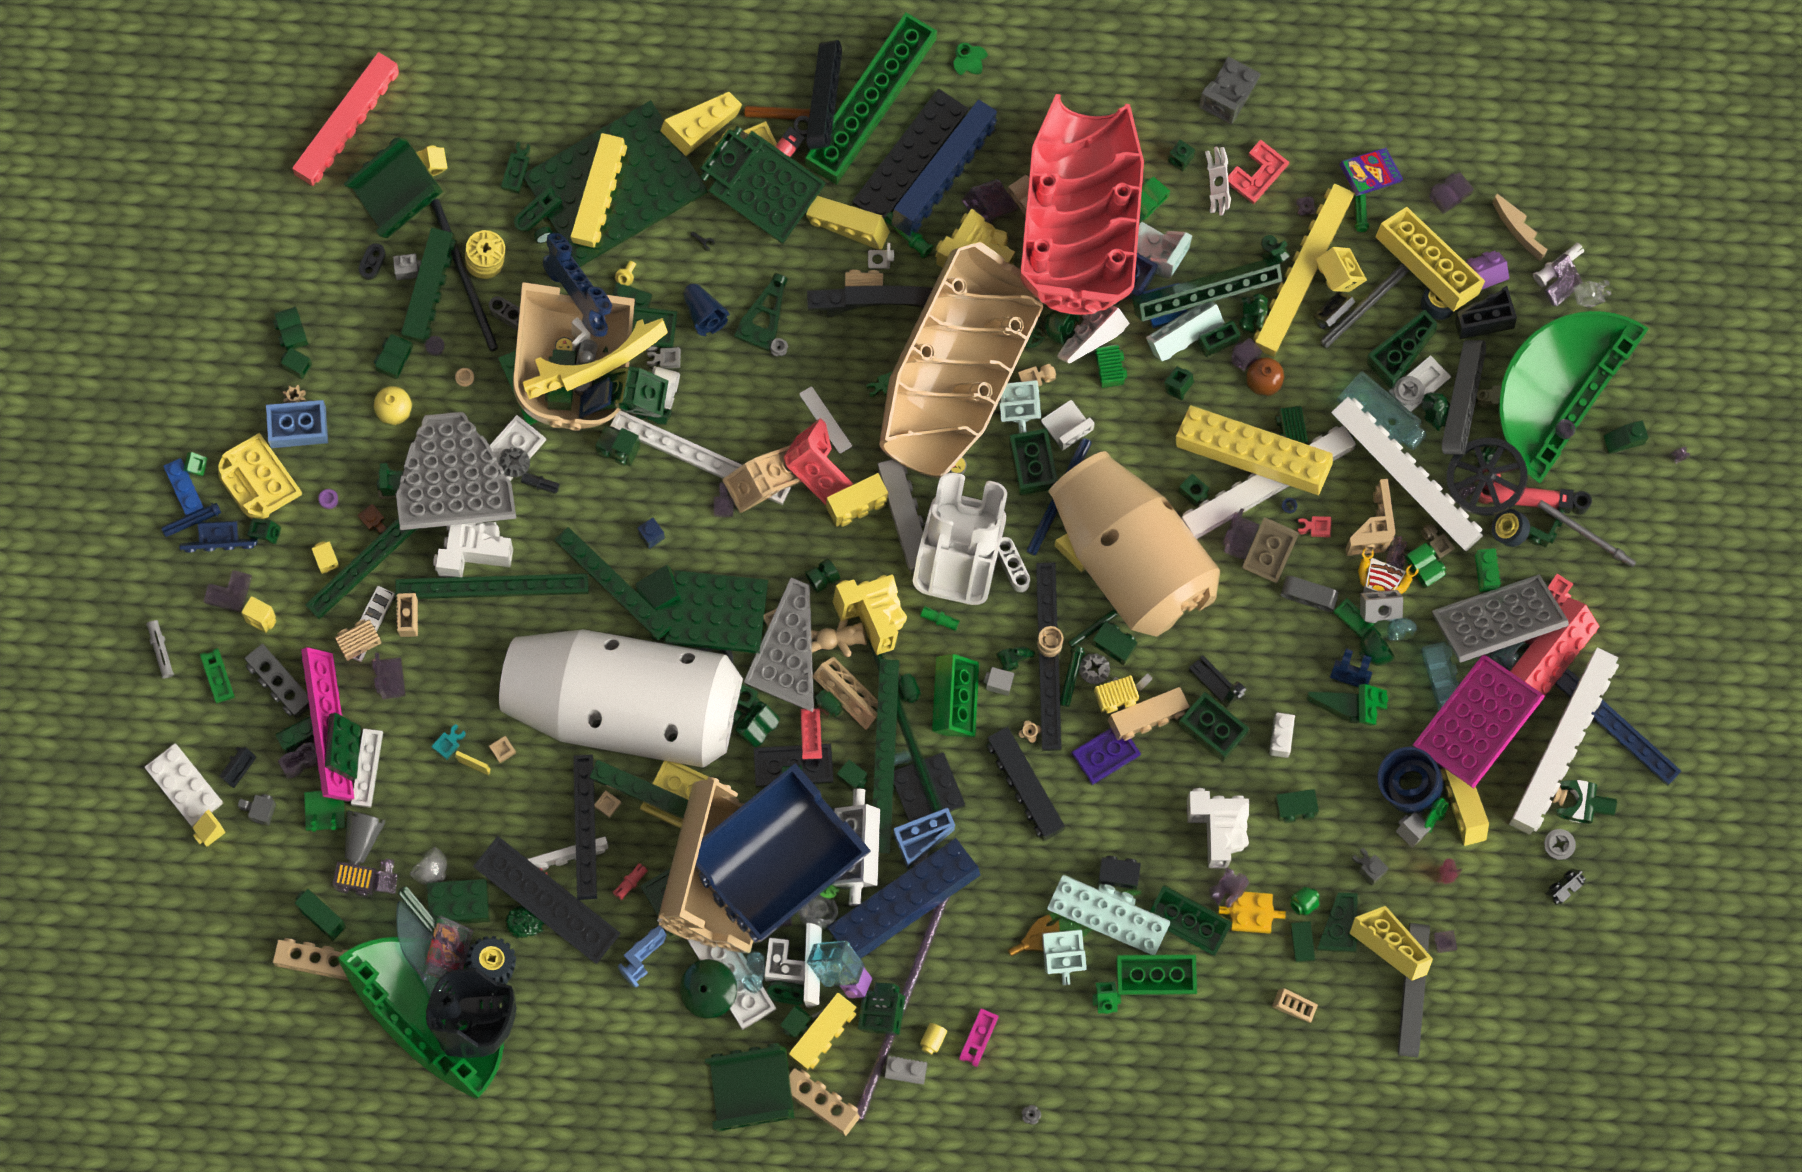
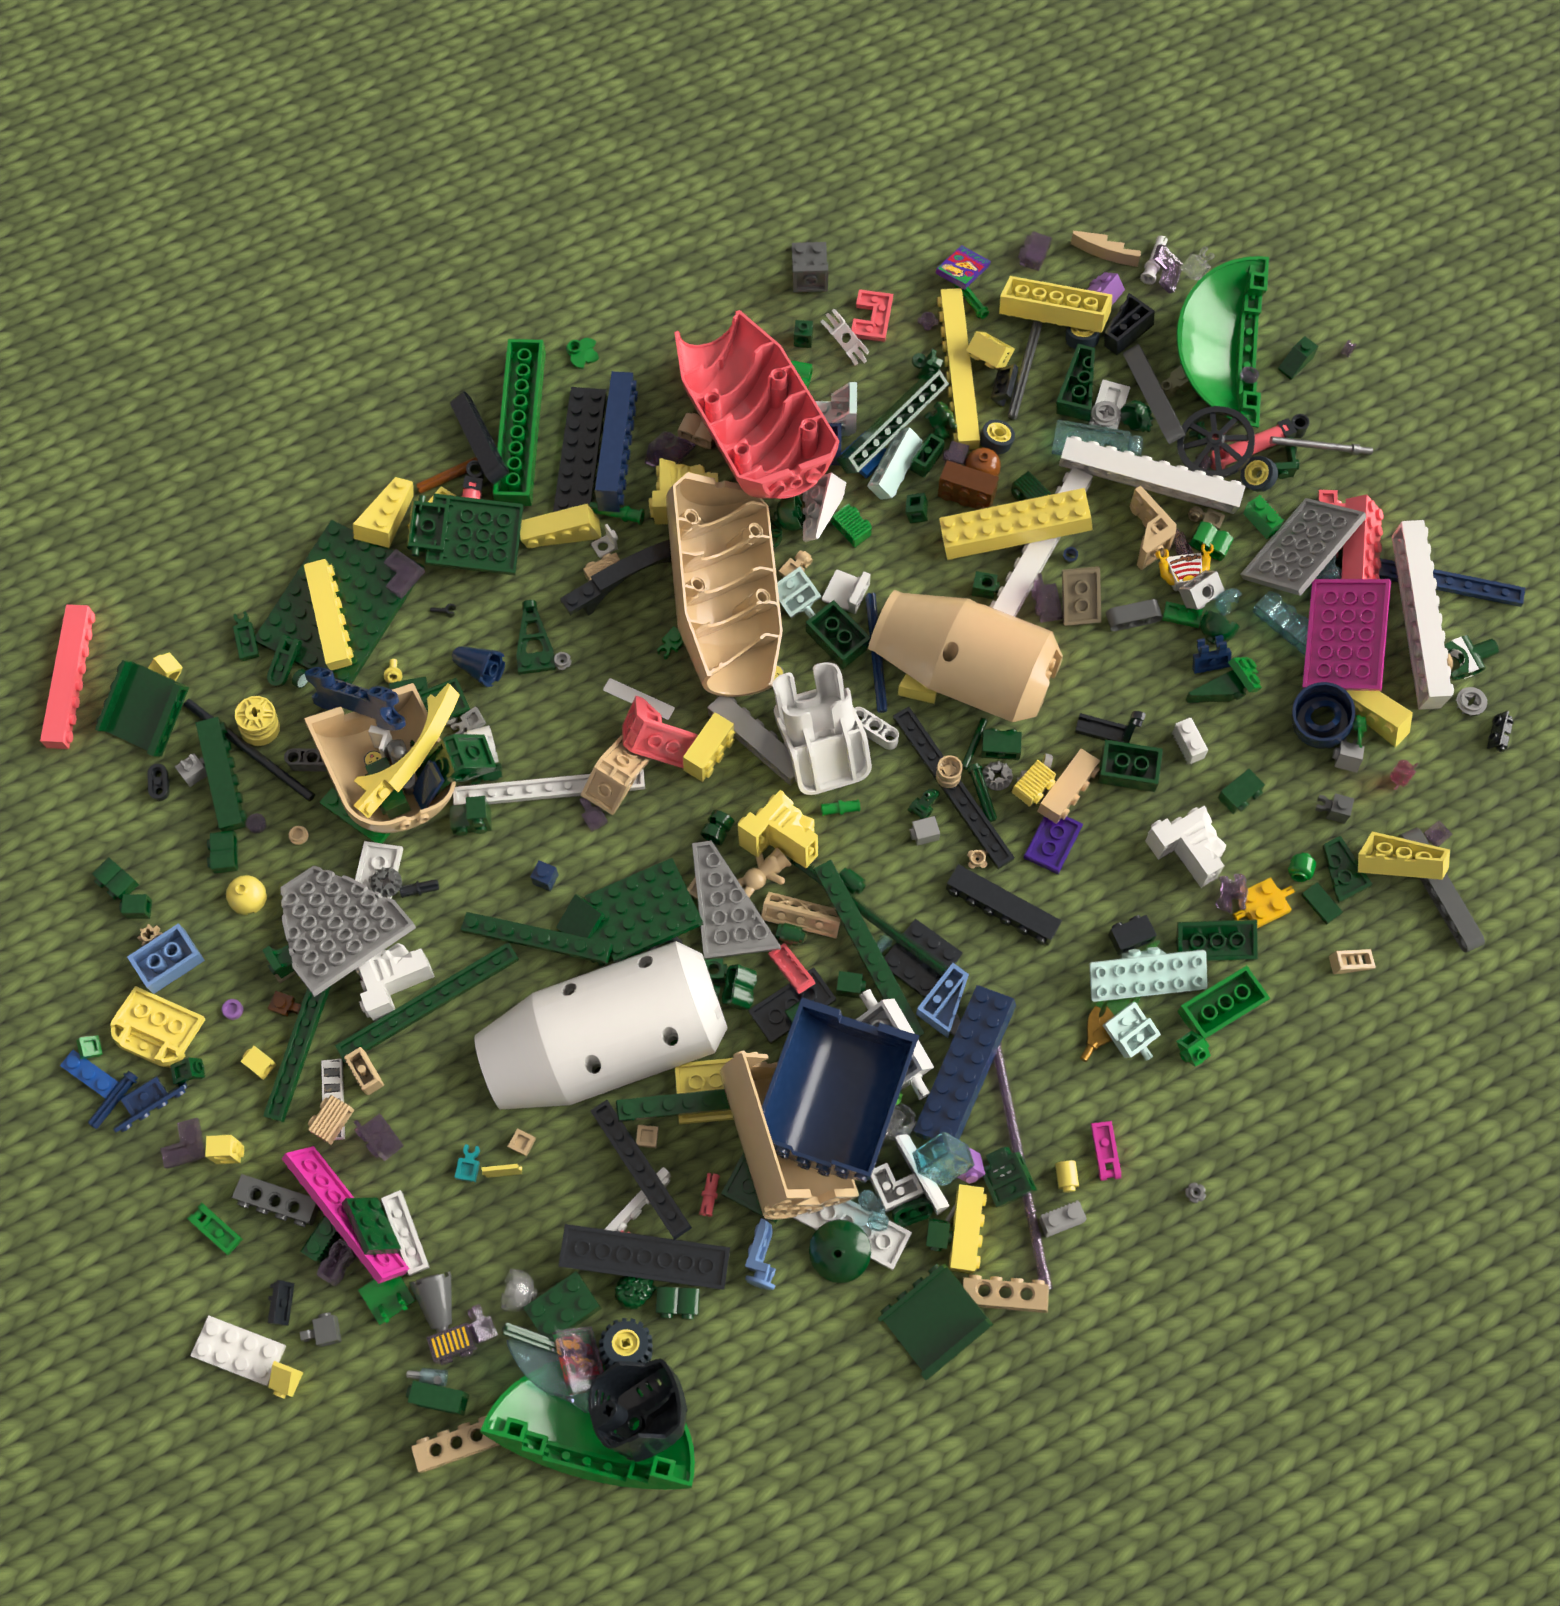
camera: 25 degrees left, 5 degrees down
(153, 628) = (129, 1219): light grey pin -> none
(323, 894) = (430, 1376): none -> clear light blue piece
(553, 951) = (677, 1301): none -> dark green brick
(687, 191) = (407, 573): none -> clear purple plate
(955, 696) = (895, 865): green slope -> none
(1235, 390) = (967, 486): none -> reddish brown brick
(1301, 350) = (997, 436): none -> black wheel
(1318, 527) = (1104, 558): coral plate -> none

